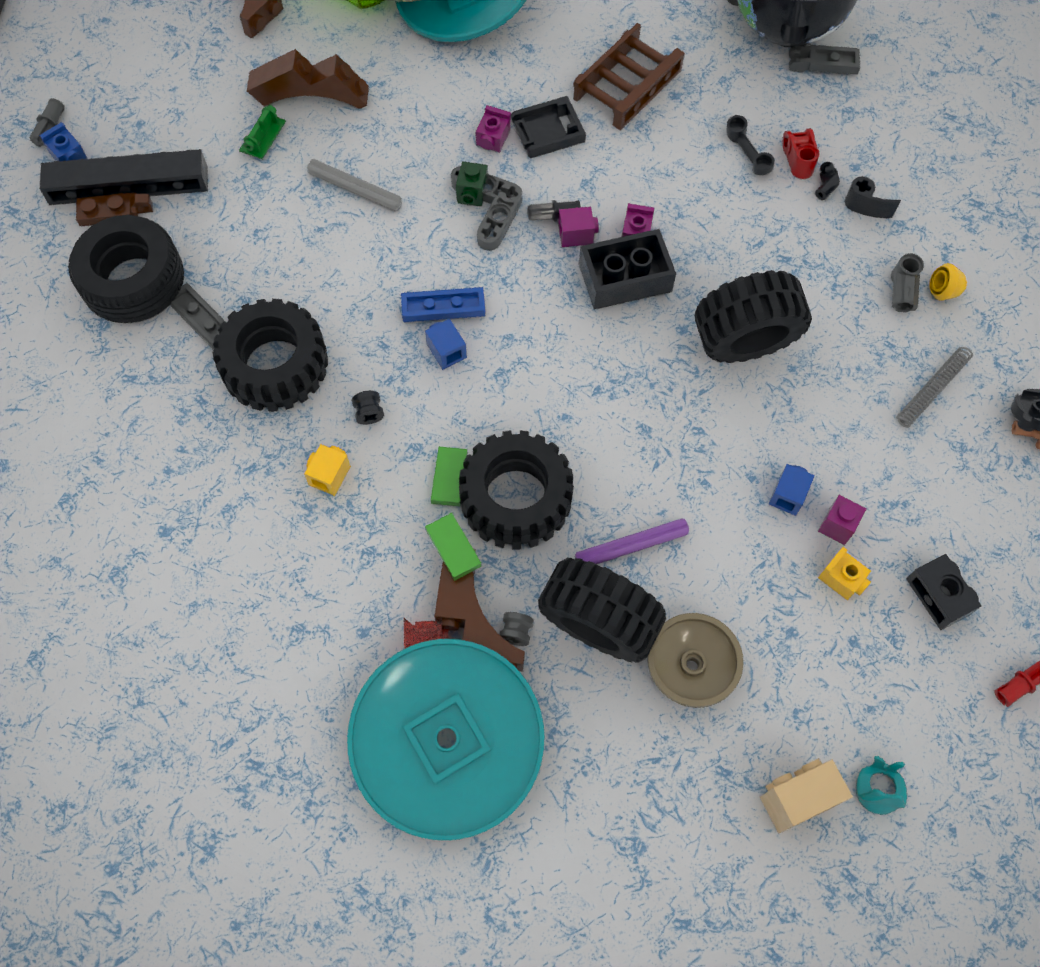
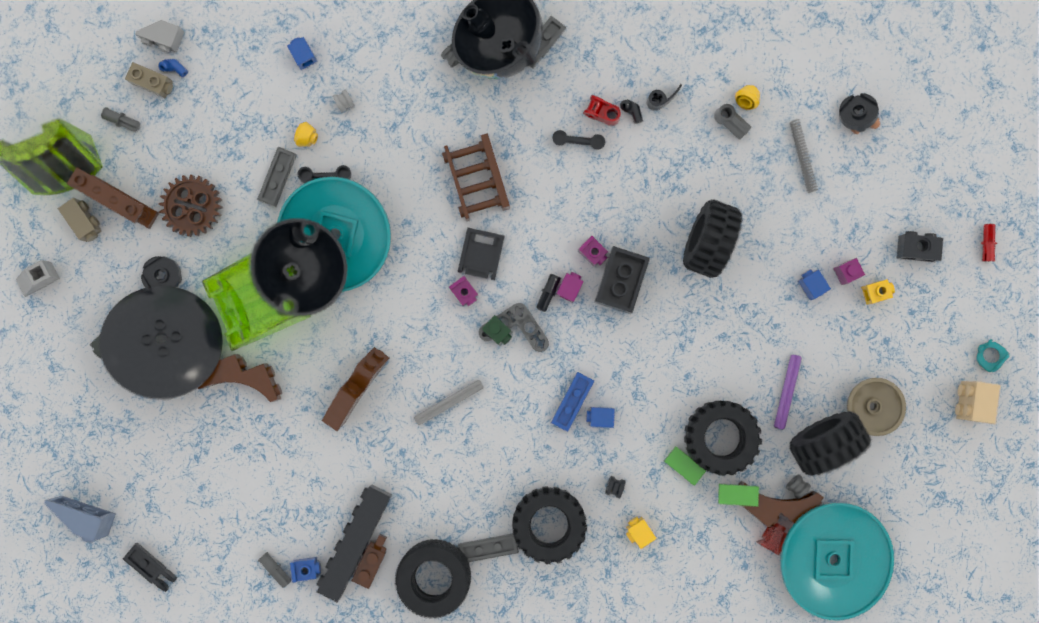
camera: 55 degrees left, 20 degrees up
(263, 133) = (372, 437): green hinge -> none

